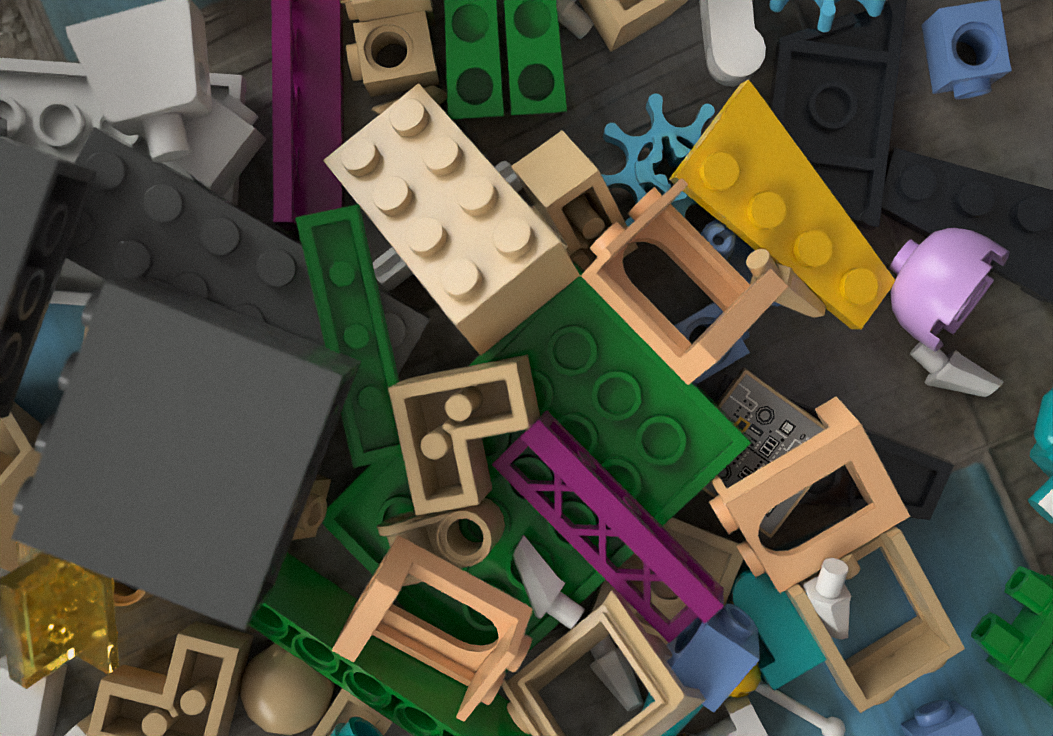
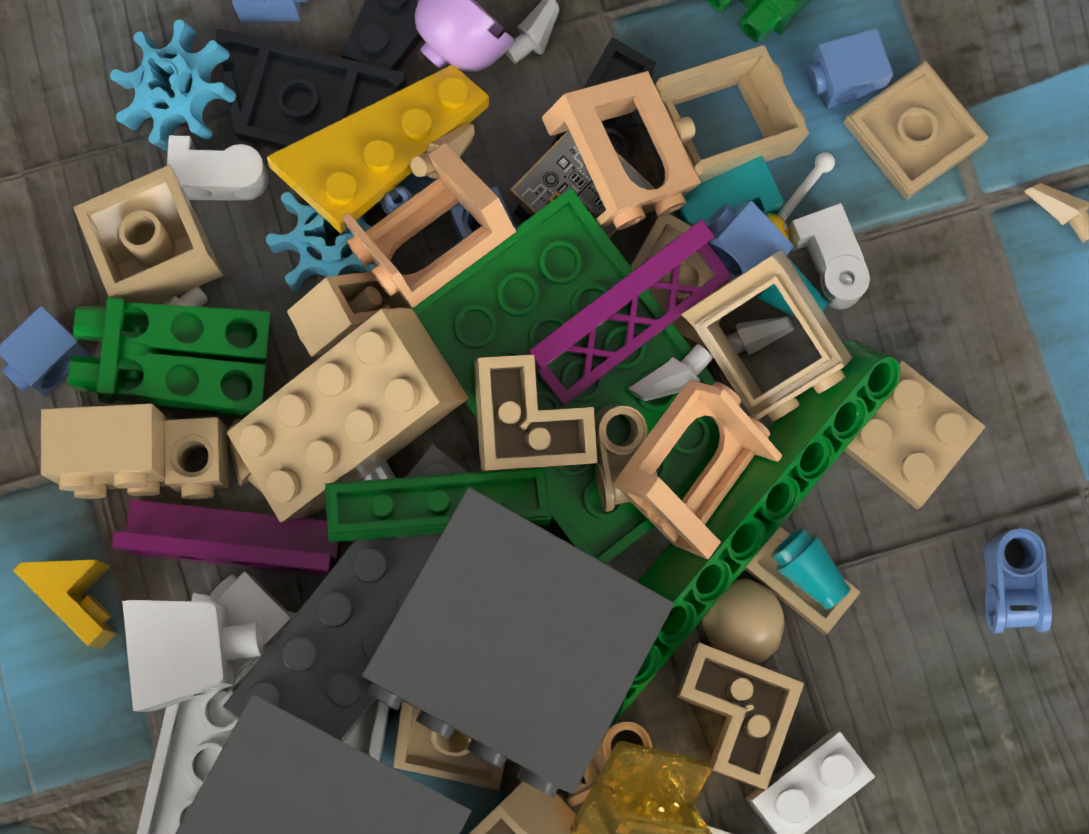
camera: 75 degrees left, 10 degrees down
(831, 597) = (707, 140): white bar -> none

